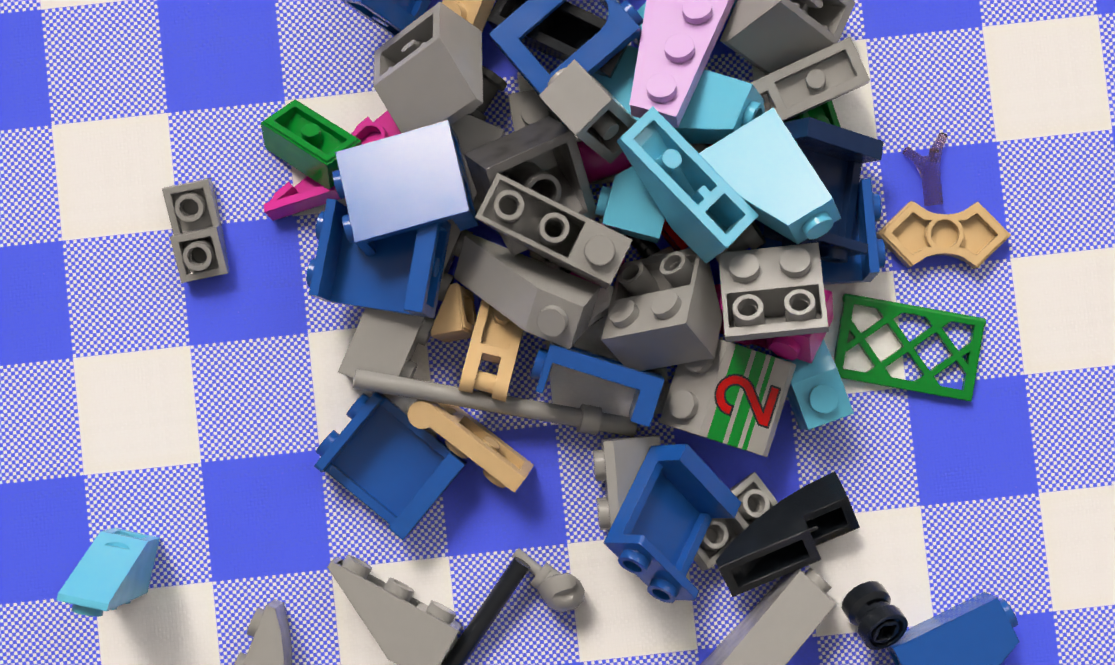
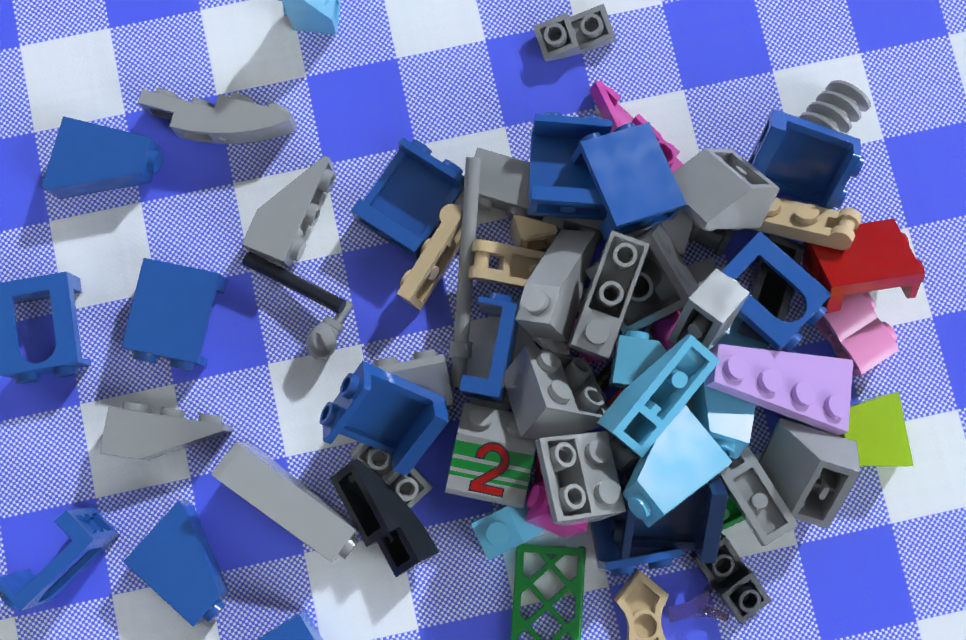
camera: 80 degrees right, 5 degrees down
(306, 141) = (656, 103): green slope -> none
(876, 619) = (325, 596): black wheel -> none
(904, 120) = (733, 582): none -> black slope

